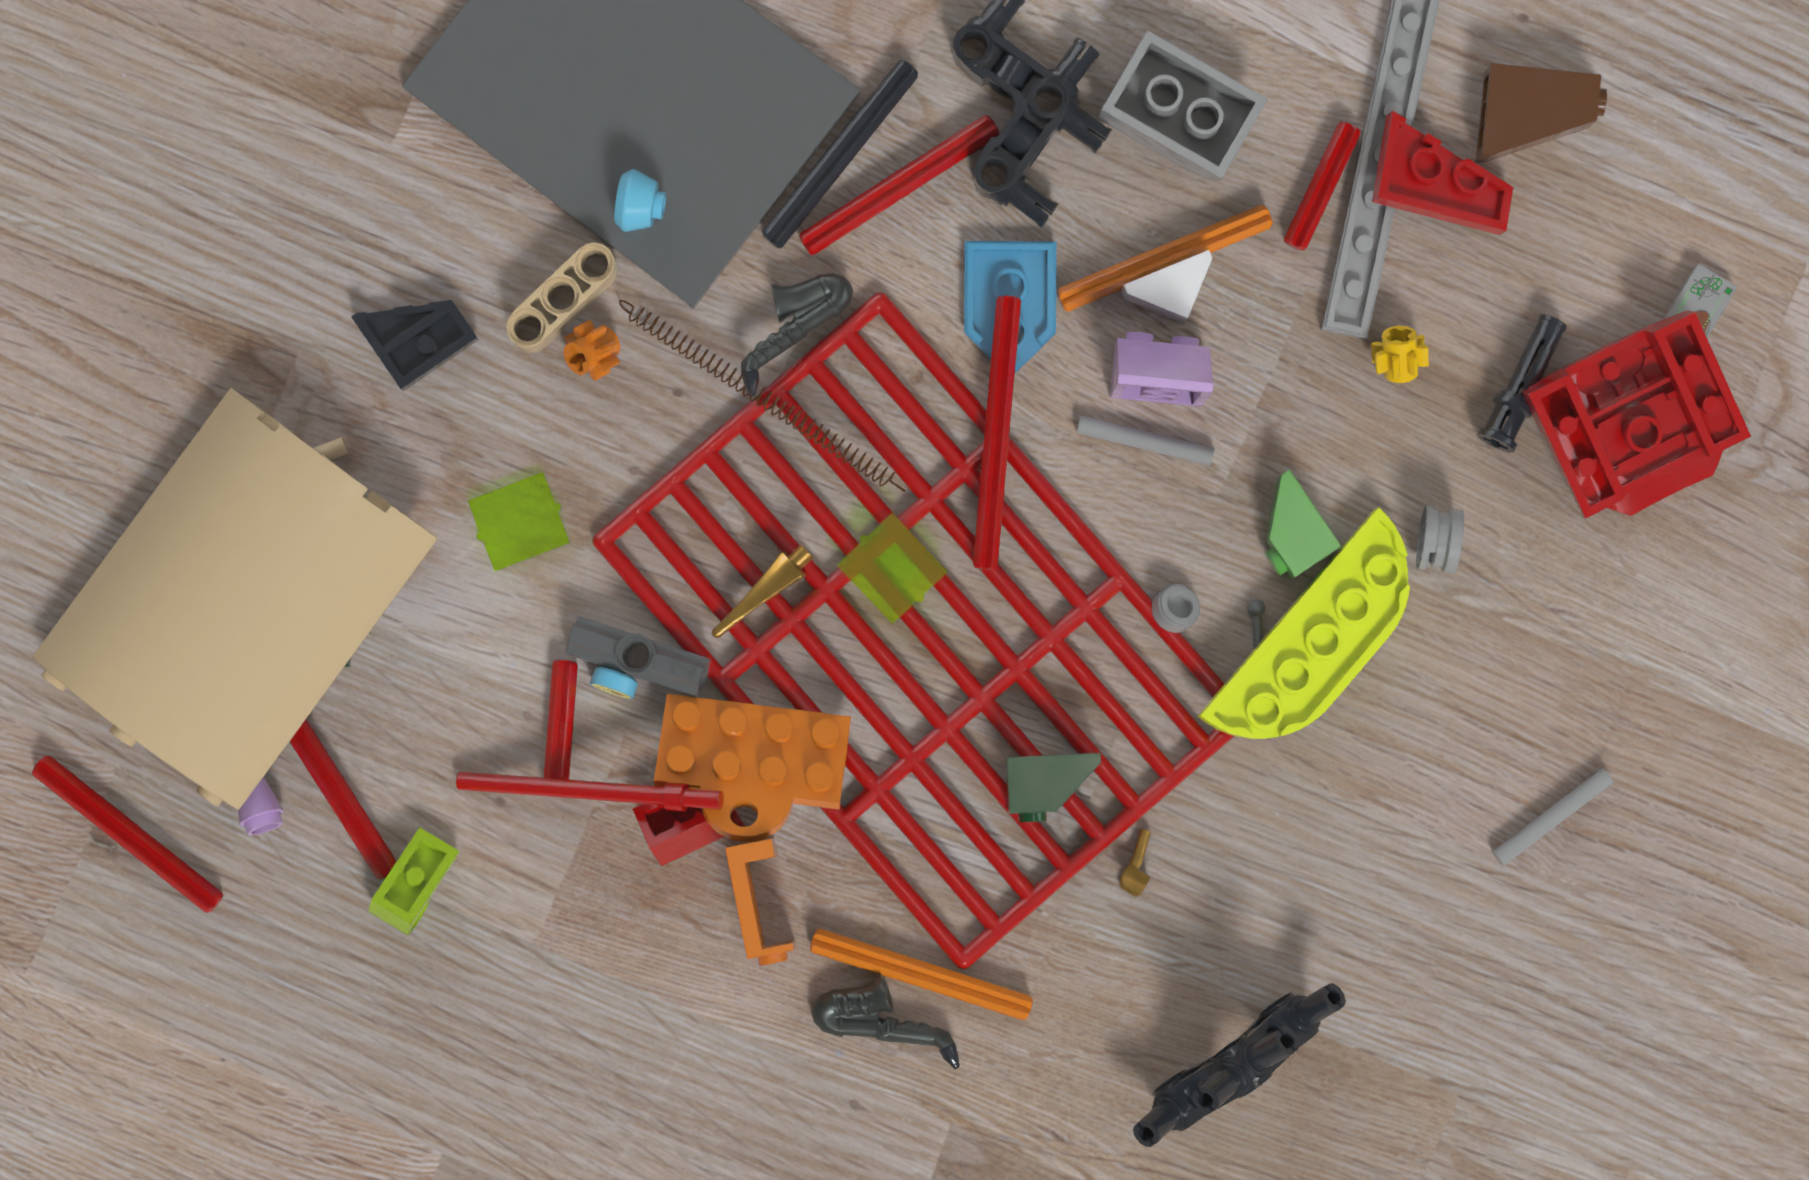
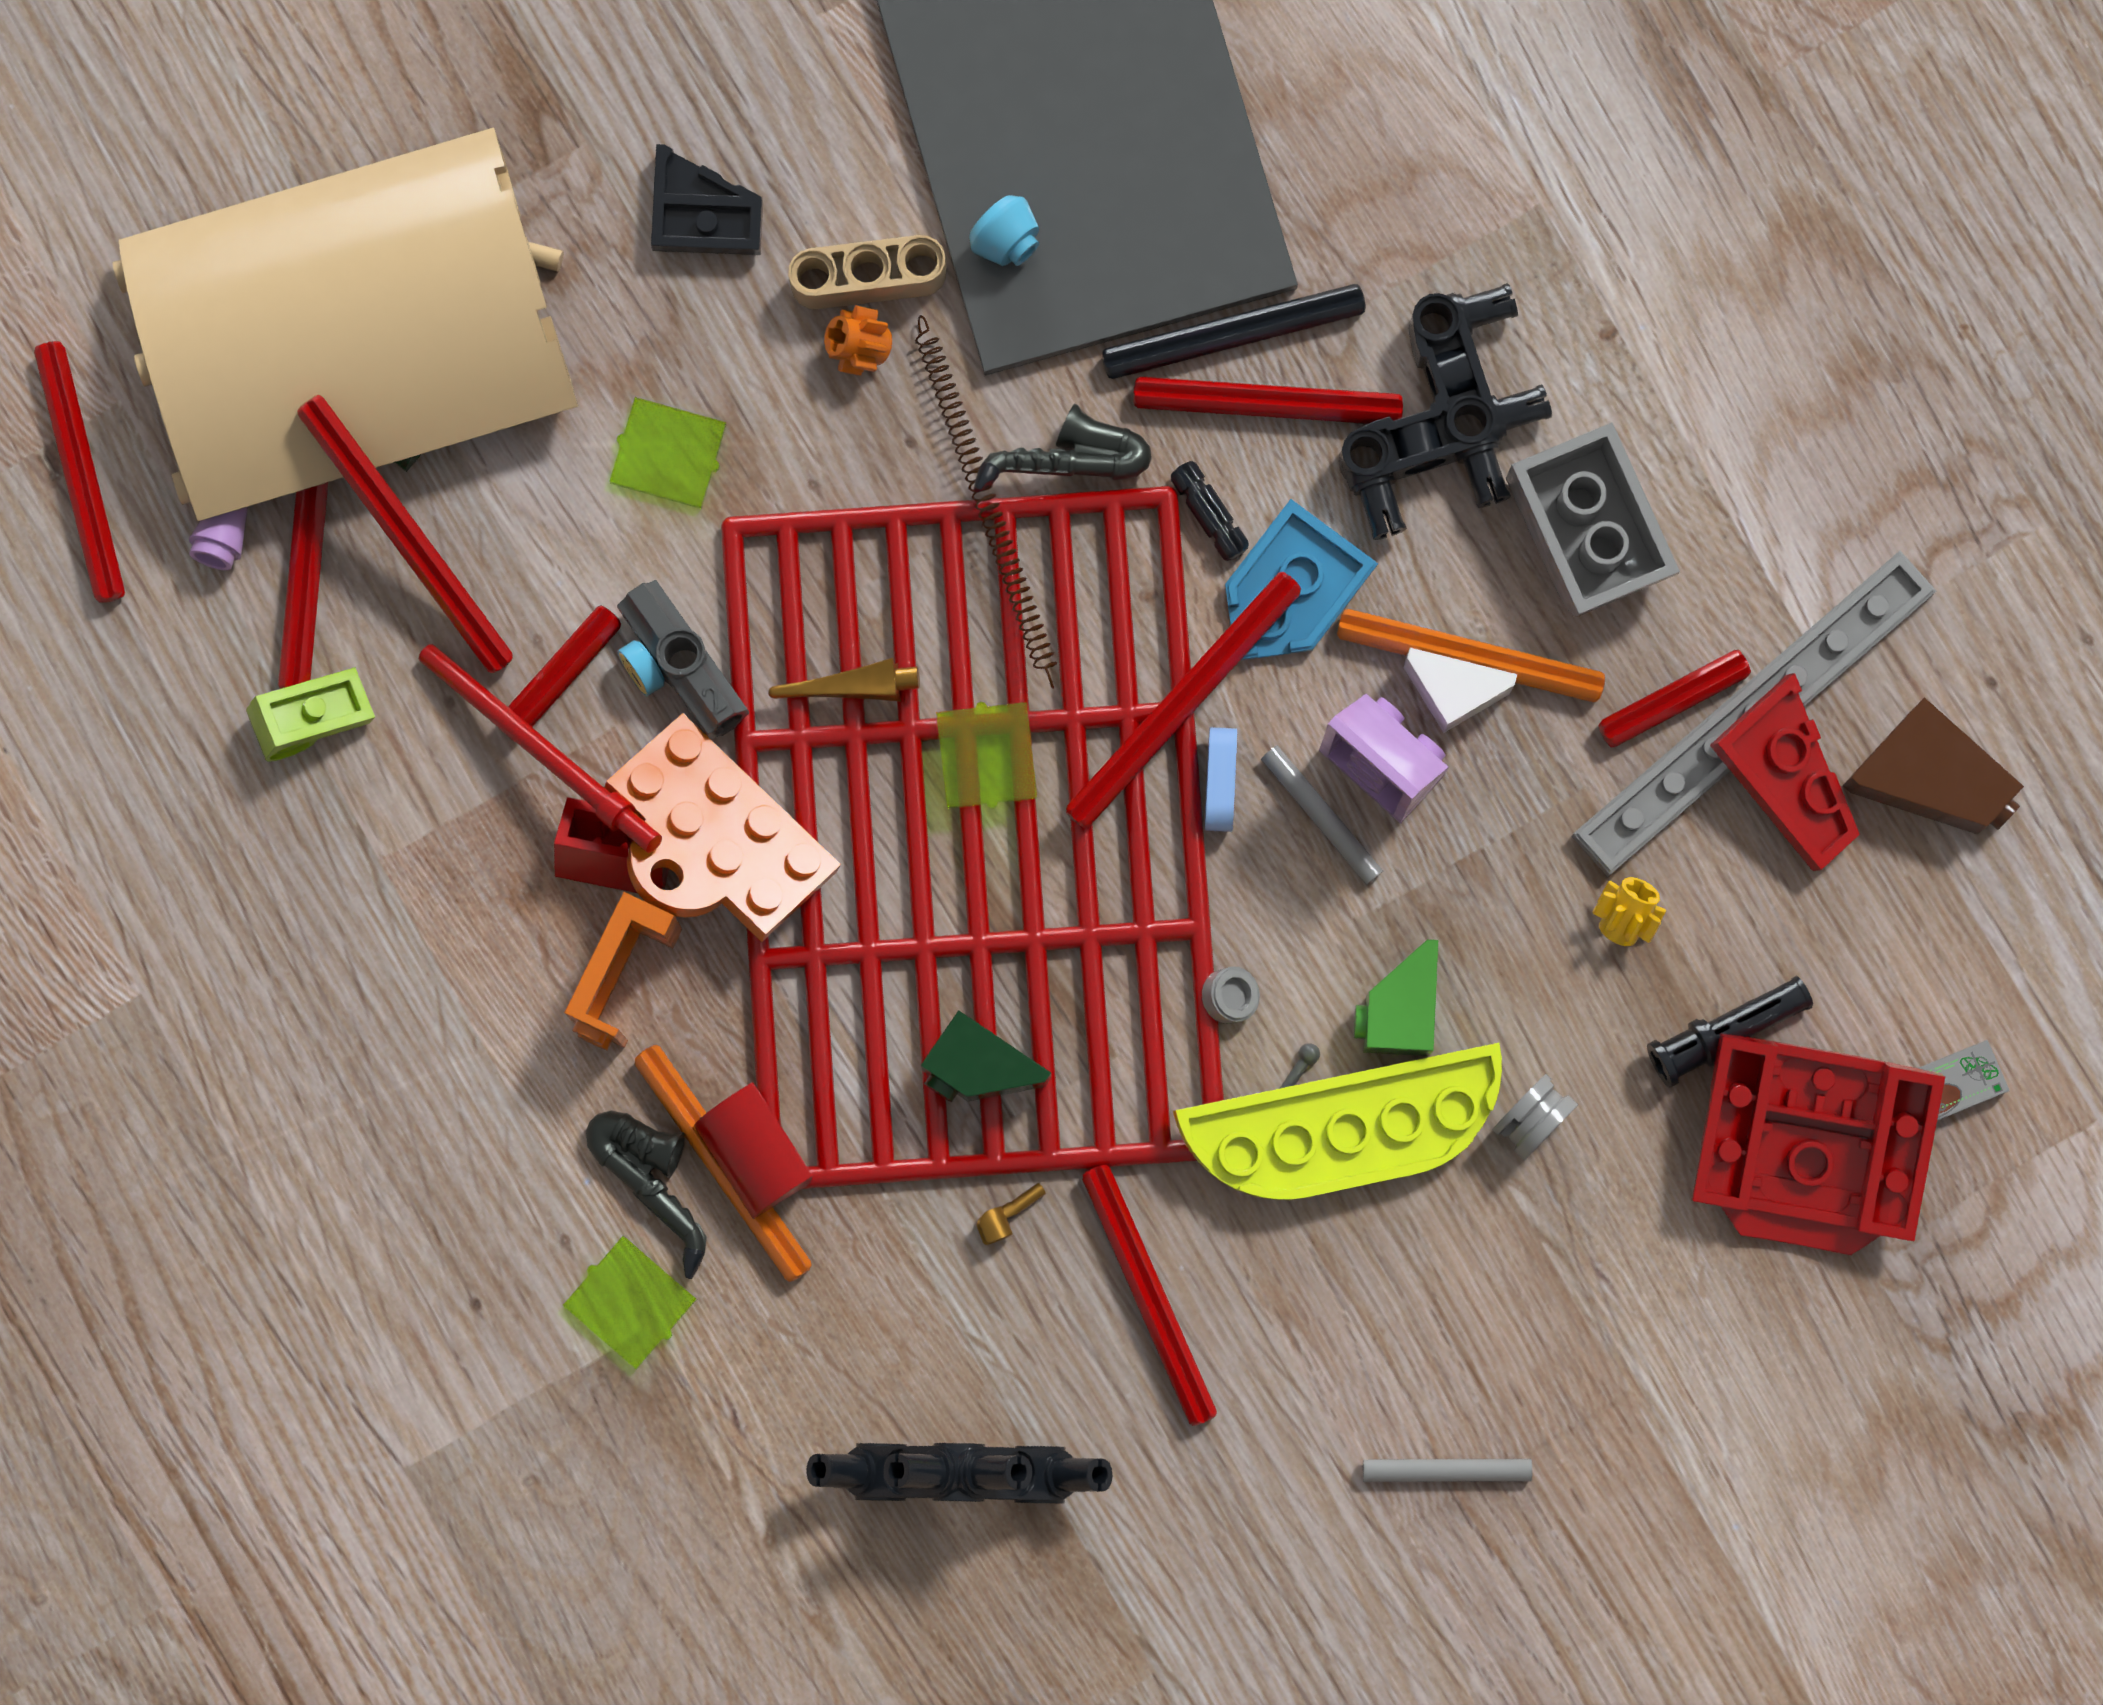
camera: 40 degrees right, 5 degrees down
(386, 713) = (405, 533): none -> red axle
(916, 289) = (1209, 510): none -> black axle
(929, 1112) = (629, 1302): none -> clear neon green piece
(939, 953) = (753, 1150): none -> red brick
(1061, 467) = (1220, 779): none -> light blue beam
(1271, 849) = (1149, 1295): none -> red axle

